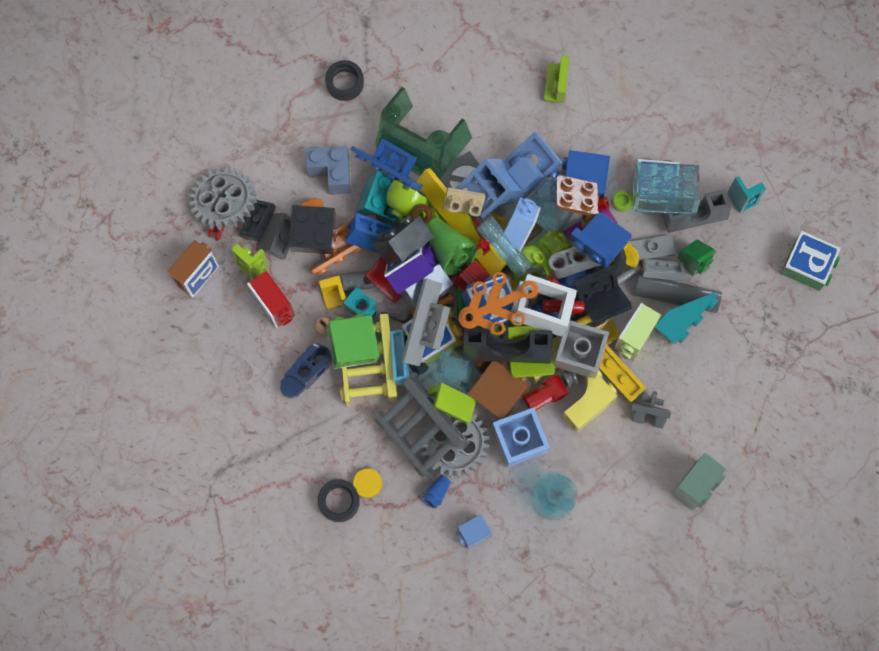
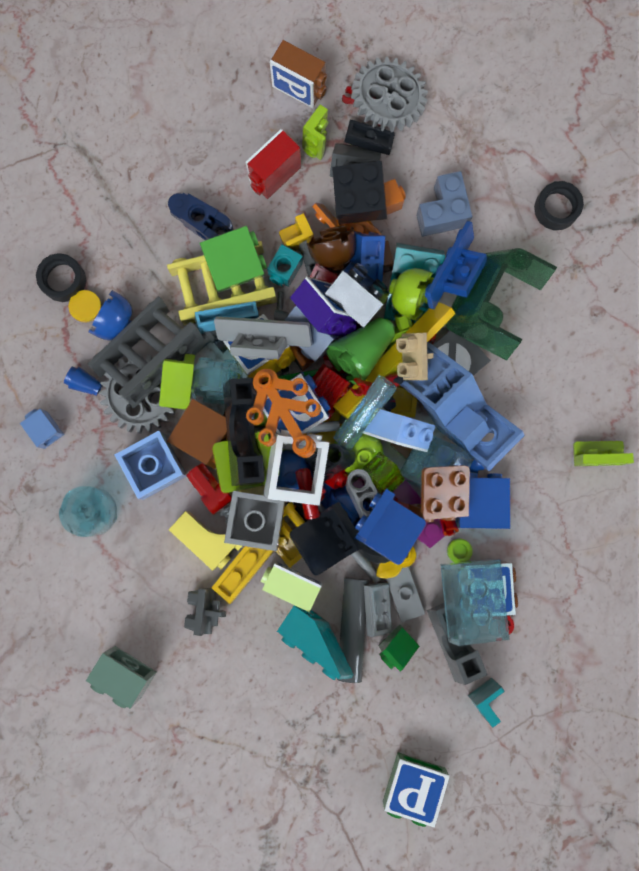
camera: 80 degrees right, 10 degrees up
(319, 328) = (262, 233): light nougat hinge -> none
(354, 258) = (333, 247): none -> reddish brown cylinder
(384, 457) = (112, 317): none -> blue cylinder
(423, 207) = (388, 308): reddish brown plate -> none

